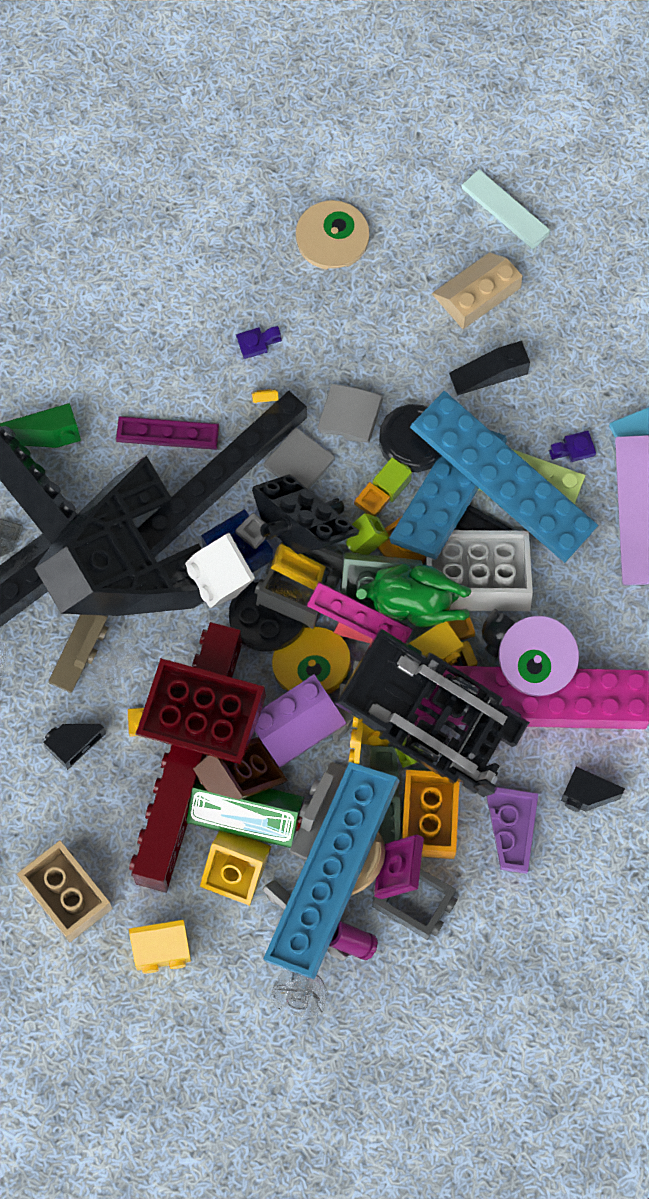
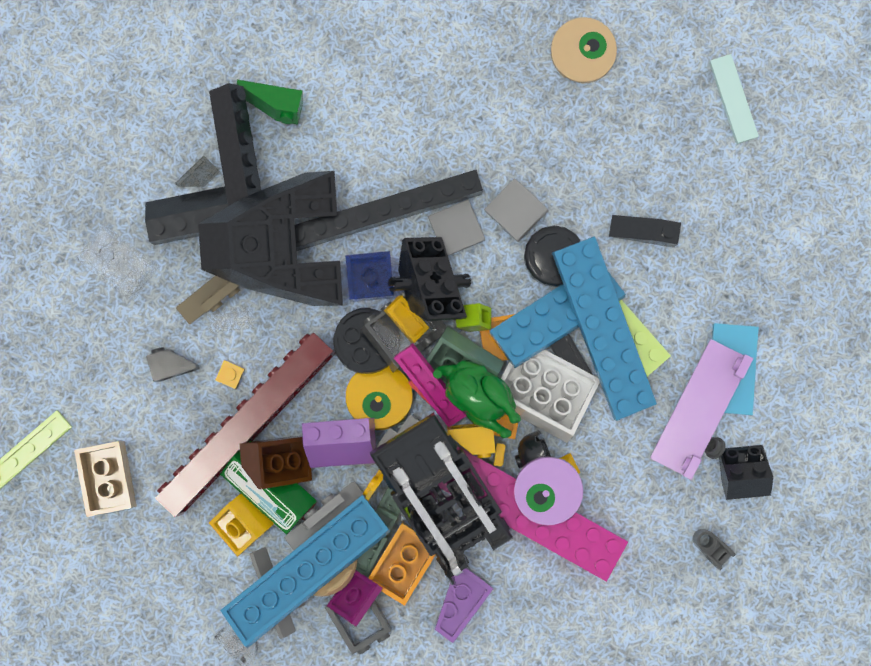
camera: 30 degrees right, 15 degrees up
(160, 946) = (153, 556): yellow slope -> none
(167, 433) = (368, 151): magenta tile -> none
(201, 711) = (264, 407): dark red slope -> none
(219, 571) = (340, 296): white slope -> none
(250, 531) = (384, 272): light grey tile -> none
(254, 342) = (473, 110): dark purple plate -> none
(264, 395) = (455, 163): yellow tile -> none
(354, 941) = (296, 629): magenta piece -> none
(372, 500) = (494, 290): light orange plate -> none
(393, 478) = (519, 282): lime brick -> none
(479, 288) = (673, 156): tan slope -> none
(576, 446) = (677, 328): dark purple plate -> none
(589, 791) = (531, 607): black slope -> none

